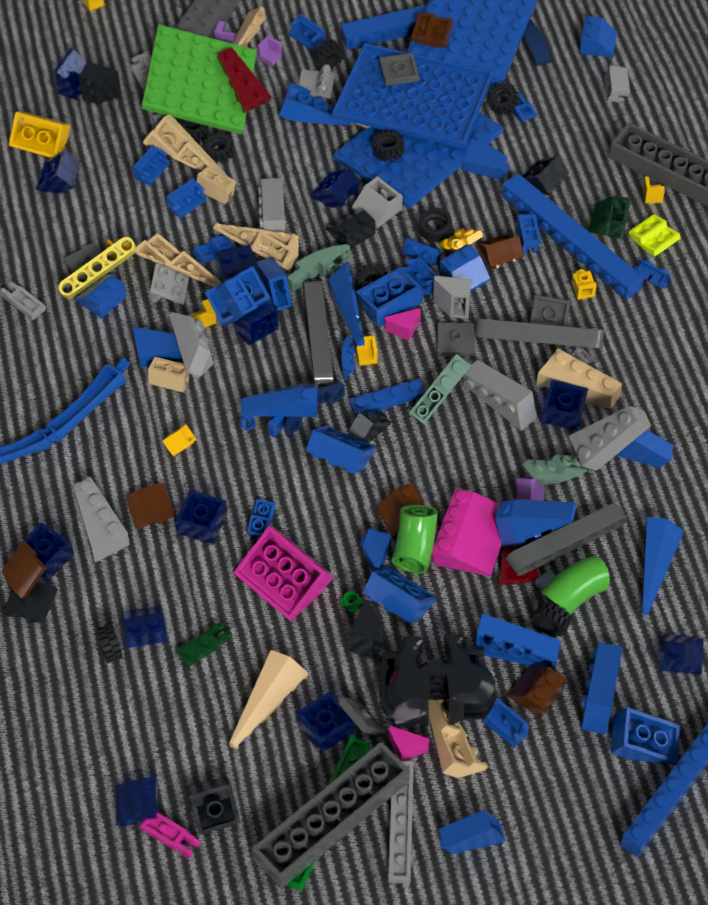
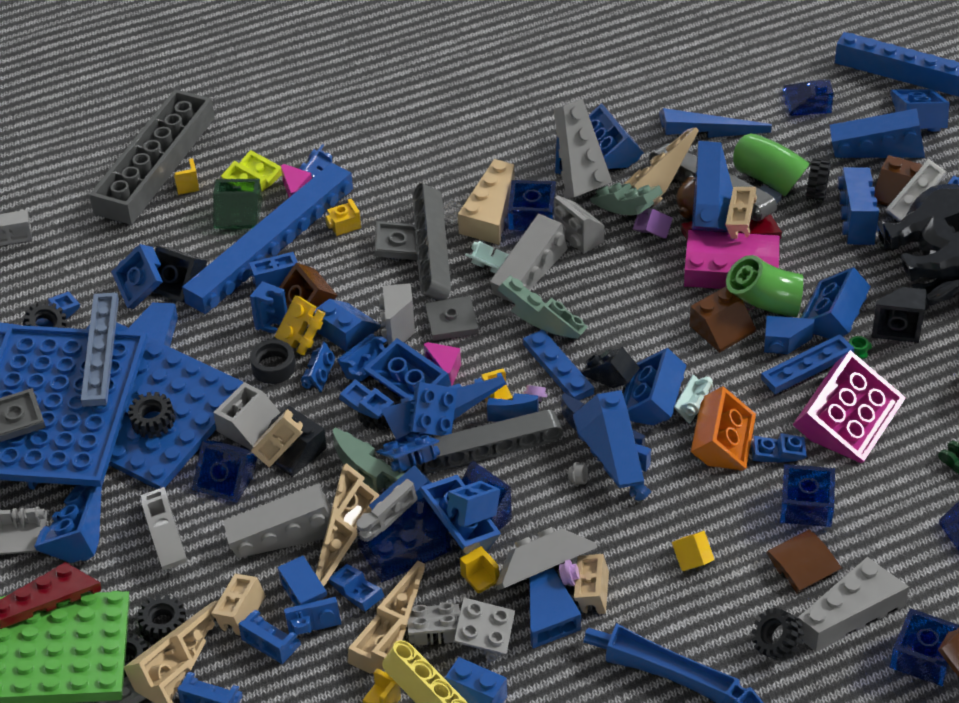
camera: 100 degrees left, 10 degrees down
(84, 465) = (766, 628): none -> black tyre
(149, 305) = (484, 627): none -> light grey hinge
(173, 354) = (569, 572): none -> lavender plate
(190, 214) = (313, 616): none -> blue hinge
(218, 215) = (301, 582): none -> blue hinge
(248, 253) = (387, 511): none -> light grey hinge
(271, 385) = (578, 474): none -> light grey plate
(284, 484) = (723, 431): none -> orange slope
(291, 147) = (163, 528): none -> light grey slope
(311, 281) = (413, 449): none -> blue hinge
(324, 472) = (692, 396): none -> light aqua hinge
(338, 293) = (433, 409): none -> blue hinge
(339, 558) = (806, 364): none -> blue plate
(341, 208) = (277, 438): none -> tan hinge
(359, 375) = (535, 390): none -> lavender plate
(370, 266) = (364, 400): none -> blue slope
(449, 114) = (100, 349): none -> sand blue plate
(485, 219) = (268, 306): none -> blue hinge
(504, 531) = (740, 210): none -> tan hinge
(513, 366) = (482, 256): none -> light aqua hinge
(516, 689) = (927, 176): none -> white tile
(535, 431) = (578, 225): none -> light grey slope
(543, 148) = (137, 275): none -> blue plate
(579, 490) = (664, 165): none -> tan wedge
(631, 254) = (294, 178): none -> dark pink slope
(635, 483) = (615, 143): none -> blue wedge

